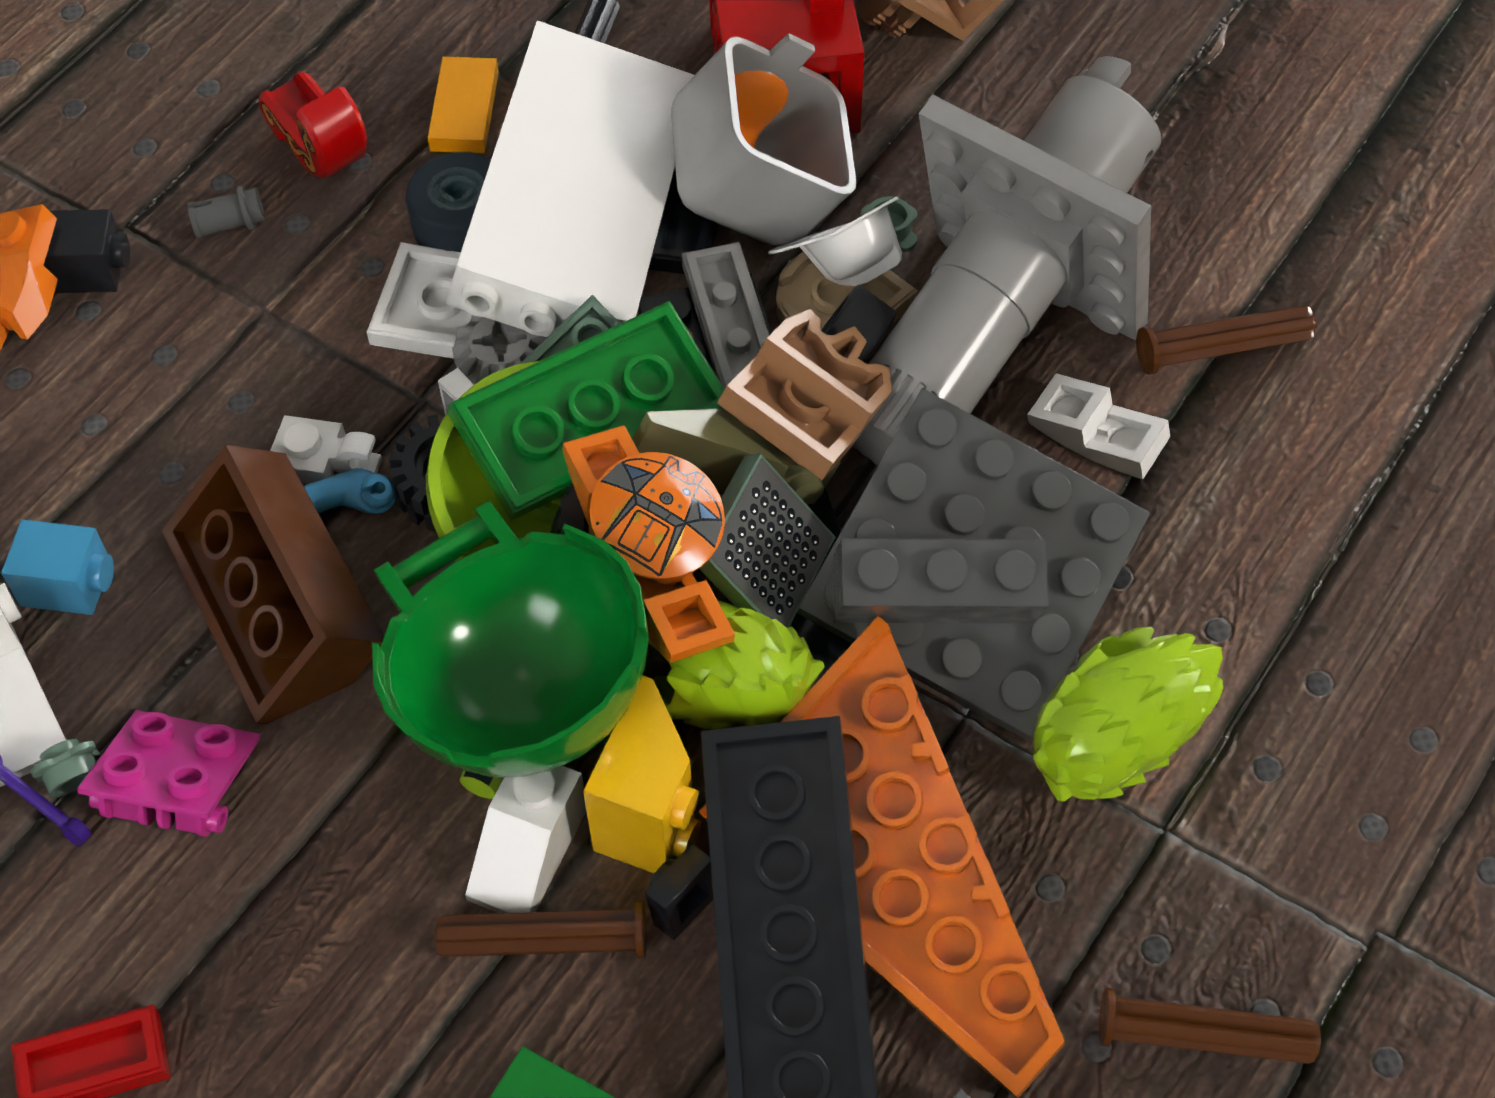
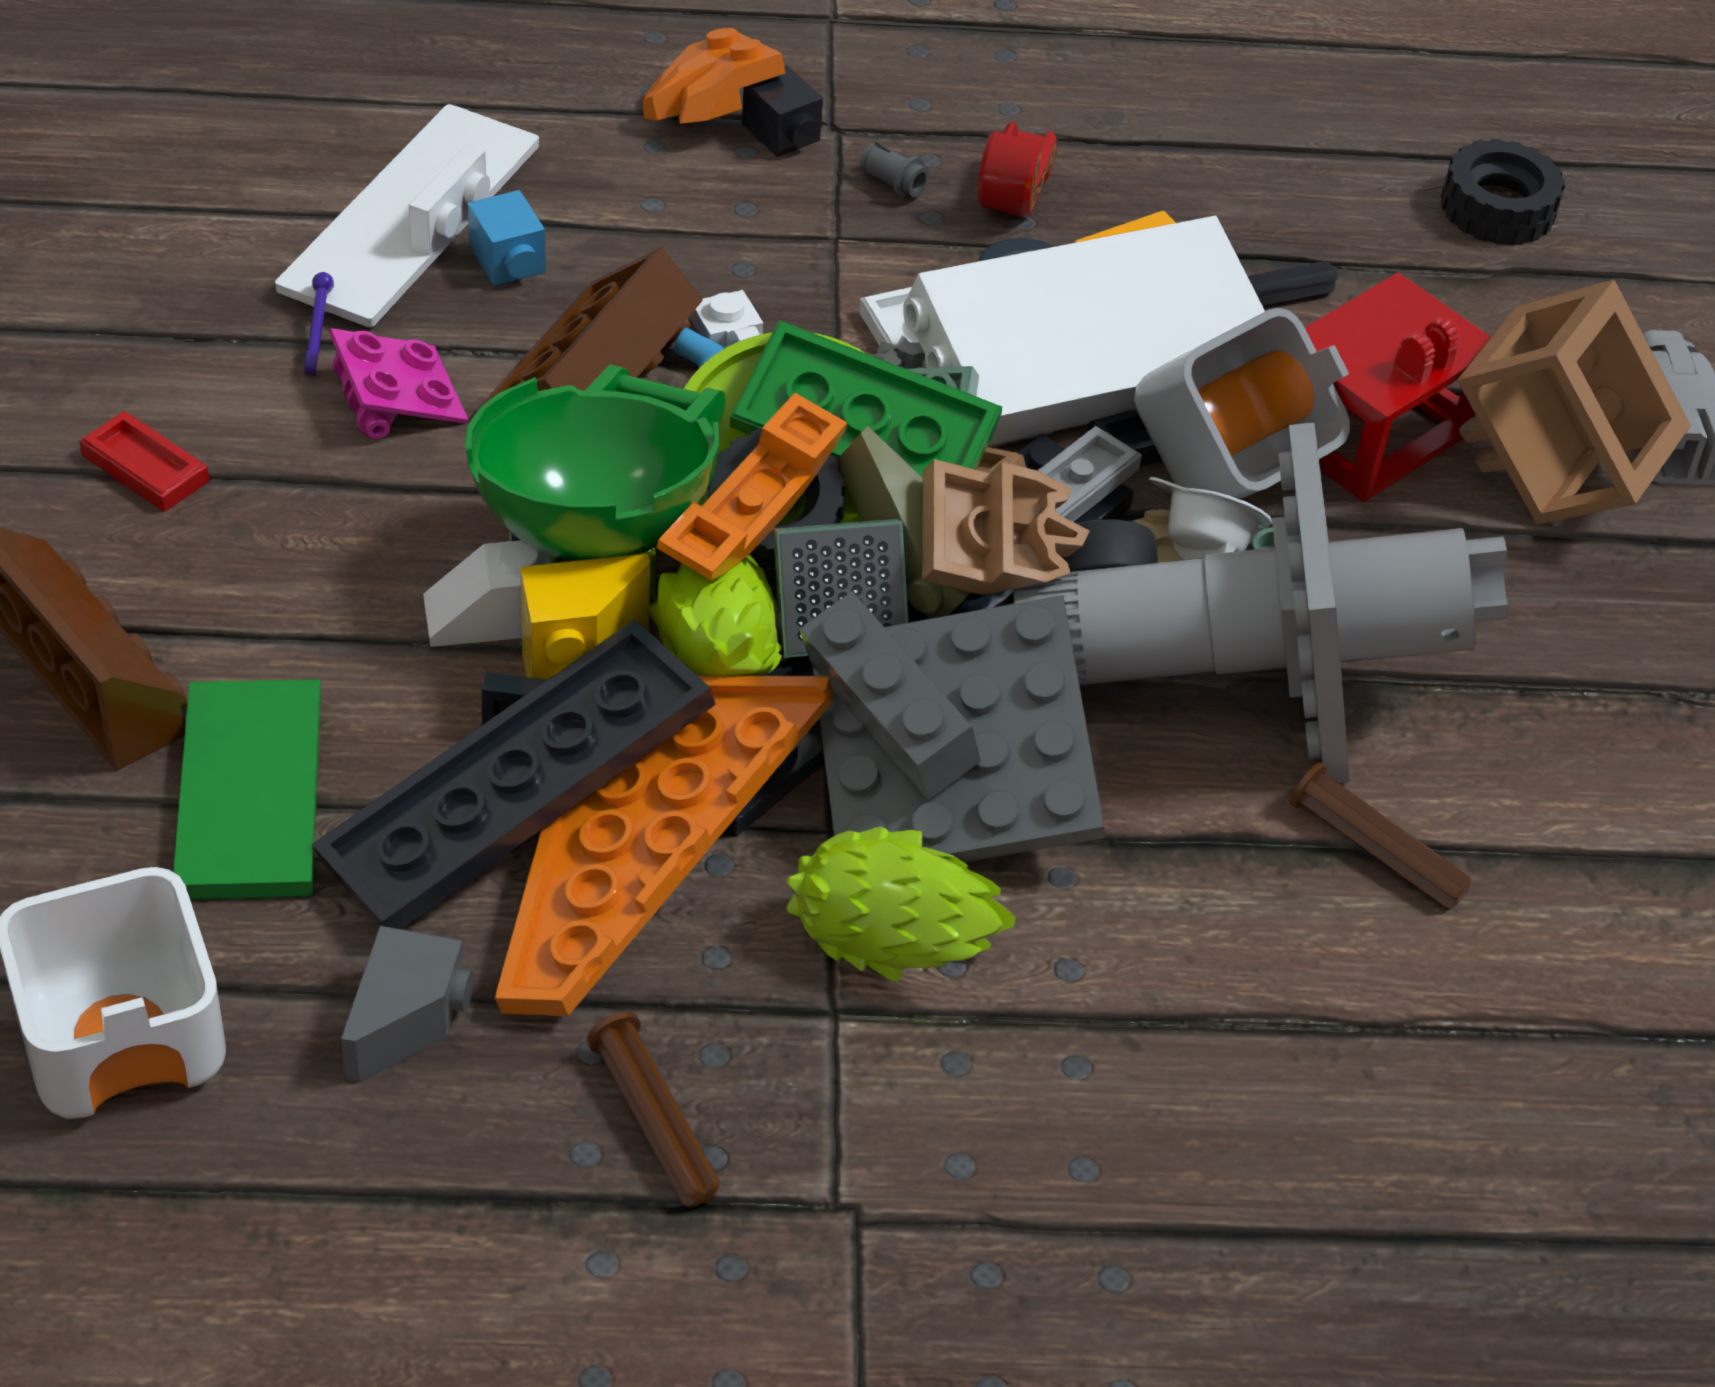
camera: 50 degrees right, 10 degrees down
(65, 766) = (351, 317): sand green plate -> none
(542, 932) = (425, 652): reddish brown axle -> none
(658, 515) = (777, 476): orange dish -> none
(1088, 423) = (1198, 790): white slope -> none

